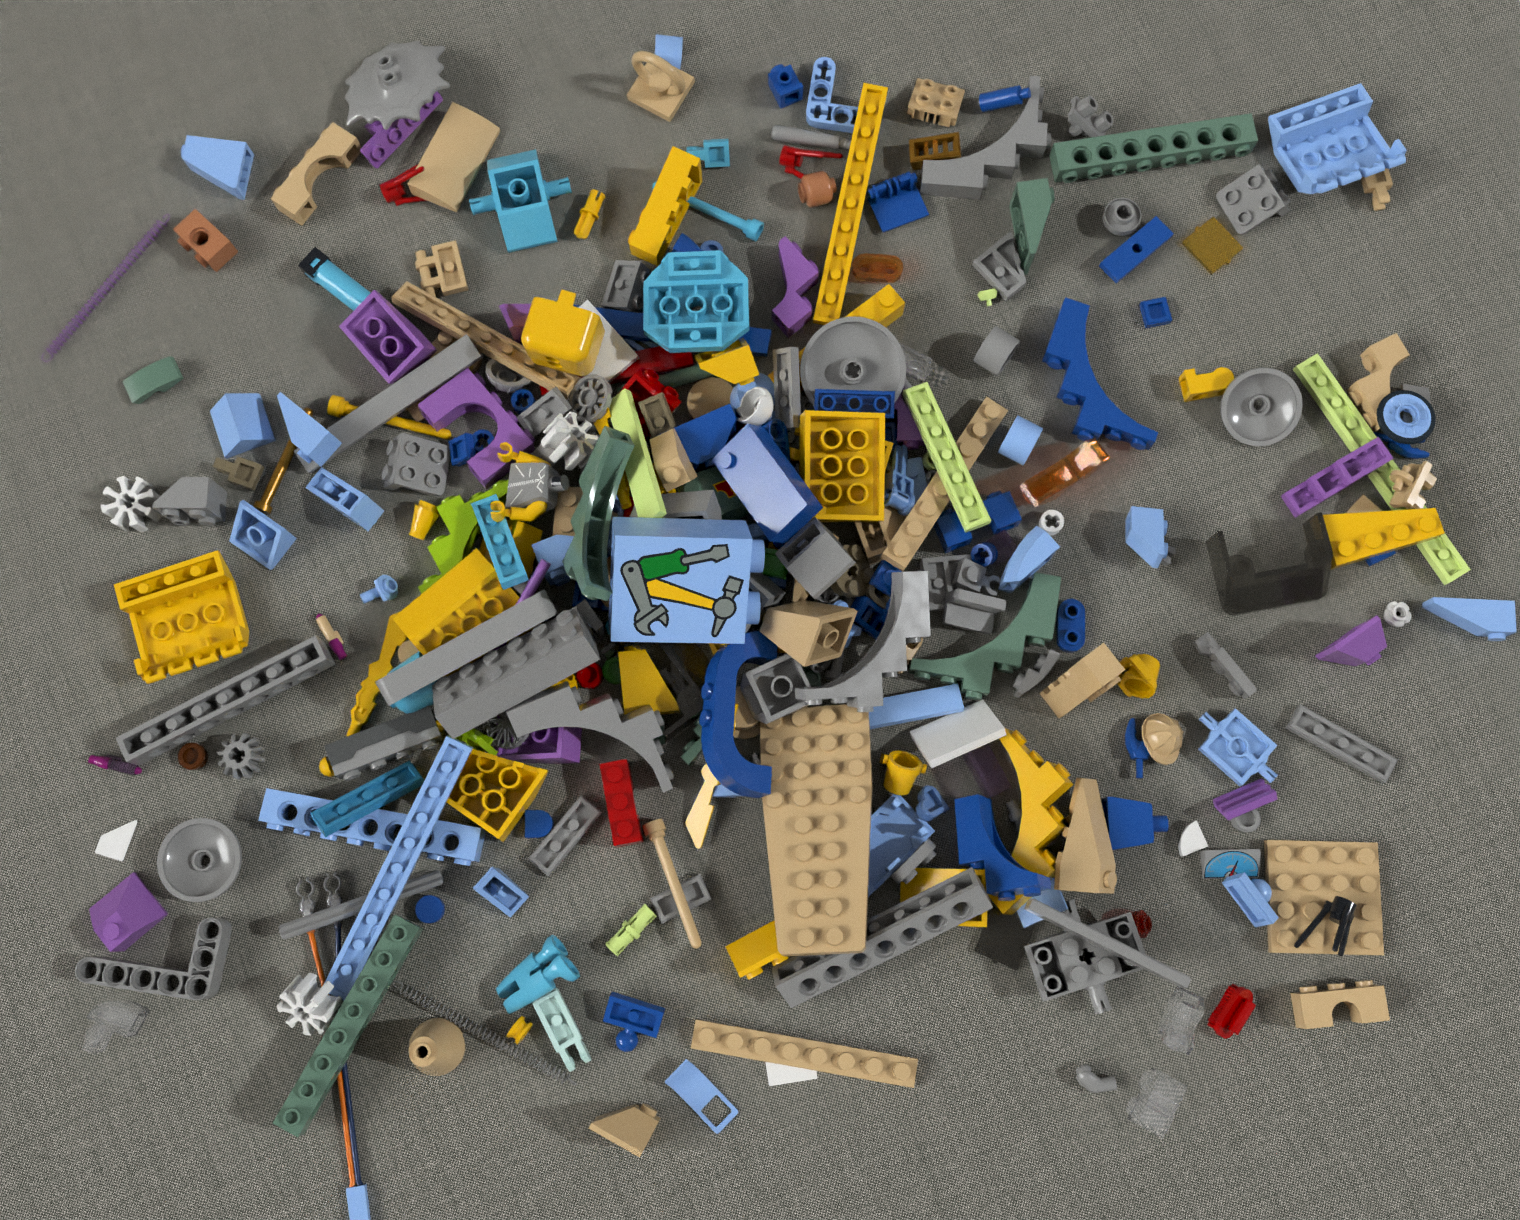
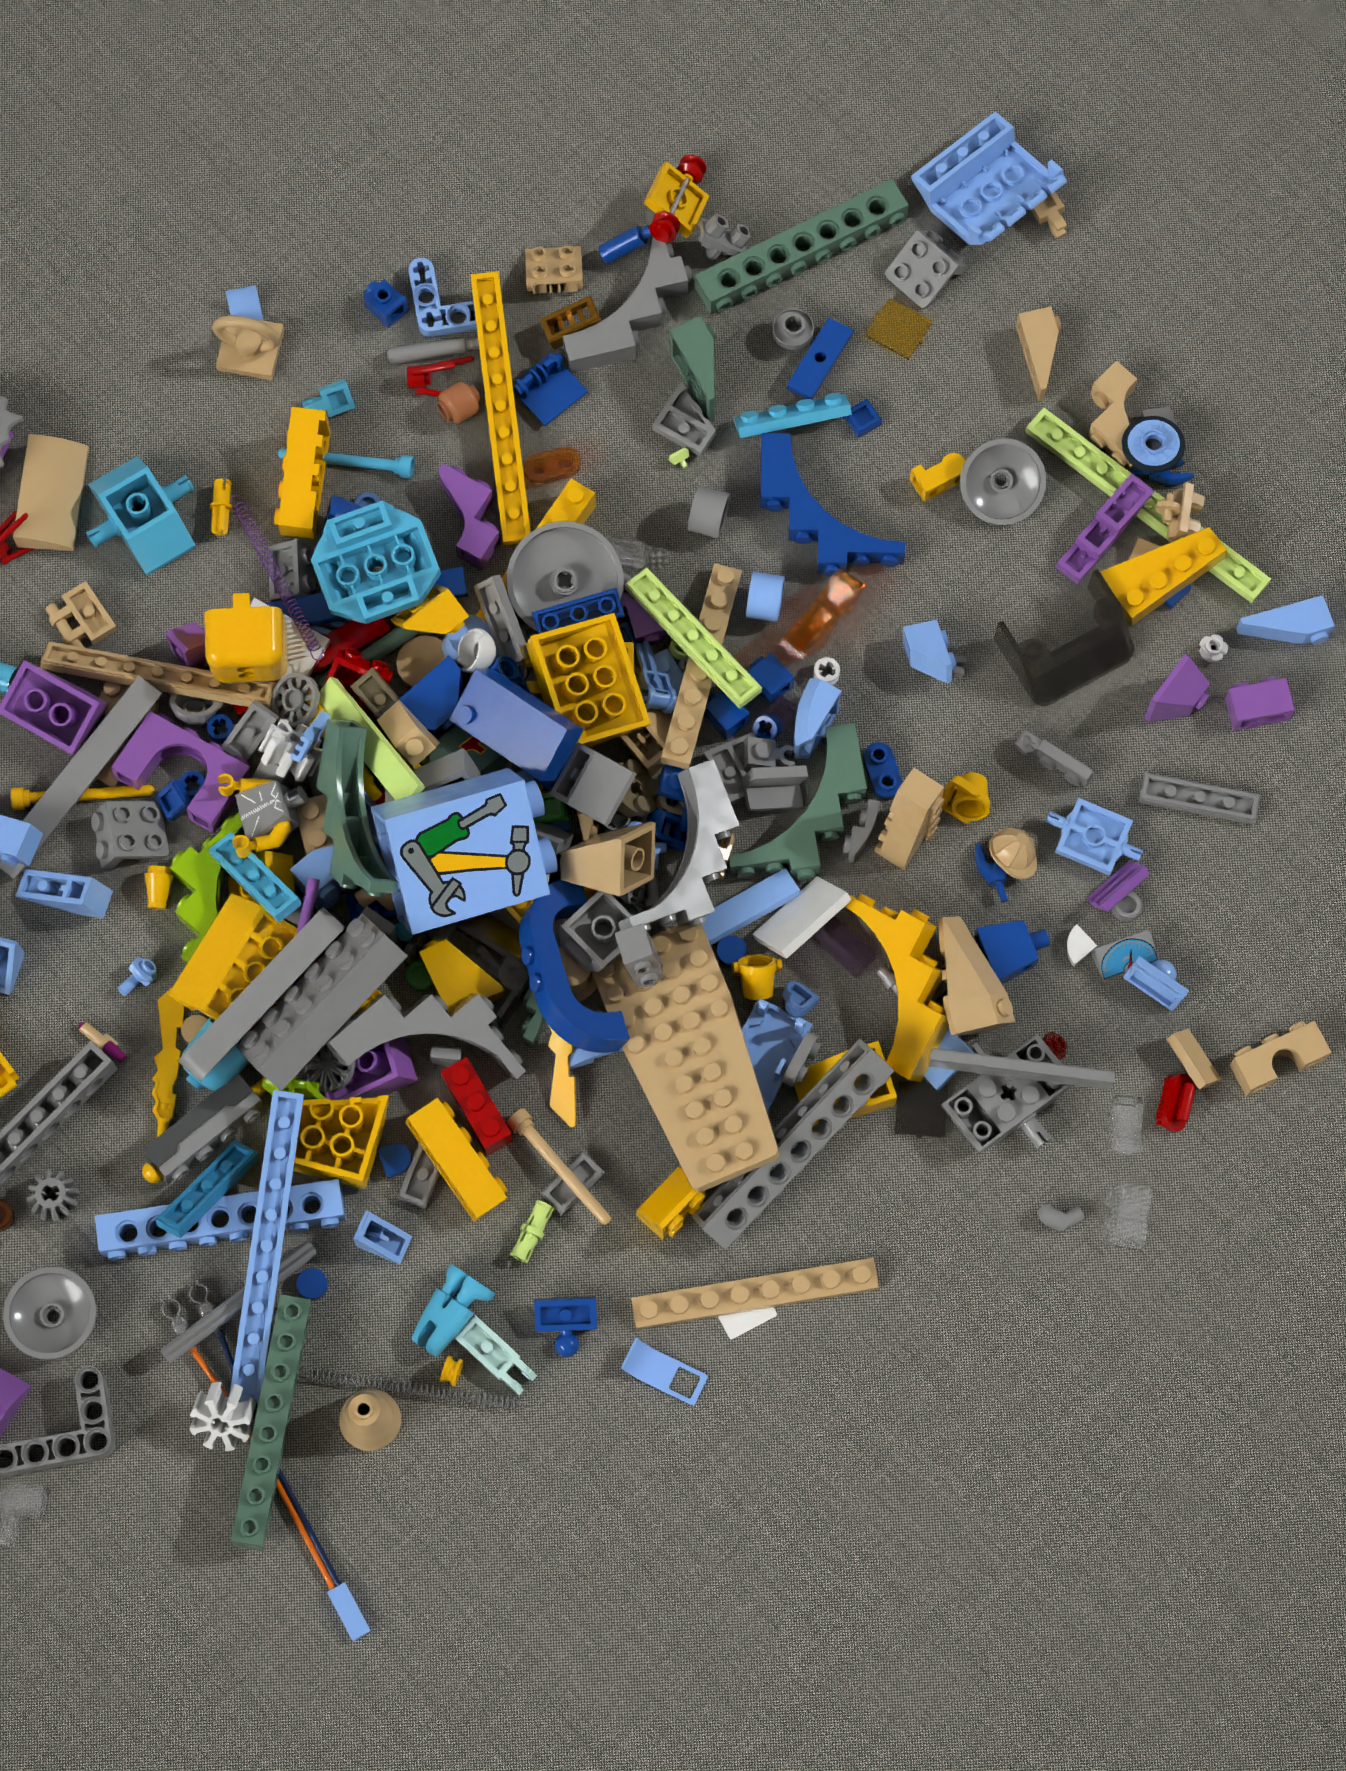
camera: 20 degrees left, 5 degrees down
(587, 435) = (310, 736): none -> light blue tile
(587, 846) = (456, 1159): none -> yellow brick
(590, 676) = (397, 987): red tile -> none
(609, 294) = (278, 580): none -> medium lavender piece
(611, 749) = (445, 1055): none -> light grey tile
(628, 1127) = (599, 1423): tan slope -> none
(803, 725) = (640, 956): none -> light grey brick
(886, 740) = (730, 950): none -> blue tile
(983, 850) = (865, 1019): blue arch -> none
(1060, 73) = (677, 198): none -> yellow plate
(1106, 291) = (784, 417): none -> medium azure plate
(1261, 979) = (1193, 1059): none -> tan tile
(1315, 872) = (1231, 957): tan plate -> none
(1331, 293) = (1038, 337): none -> tan slope
(1340, 912) = (1249, 965): black plant -> none
(1424, 677) = (1259, 703): none -> medium lavender brick

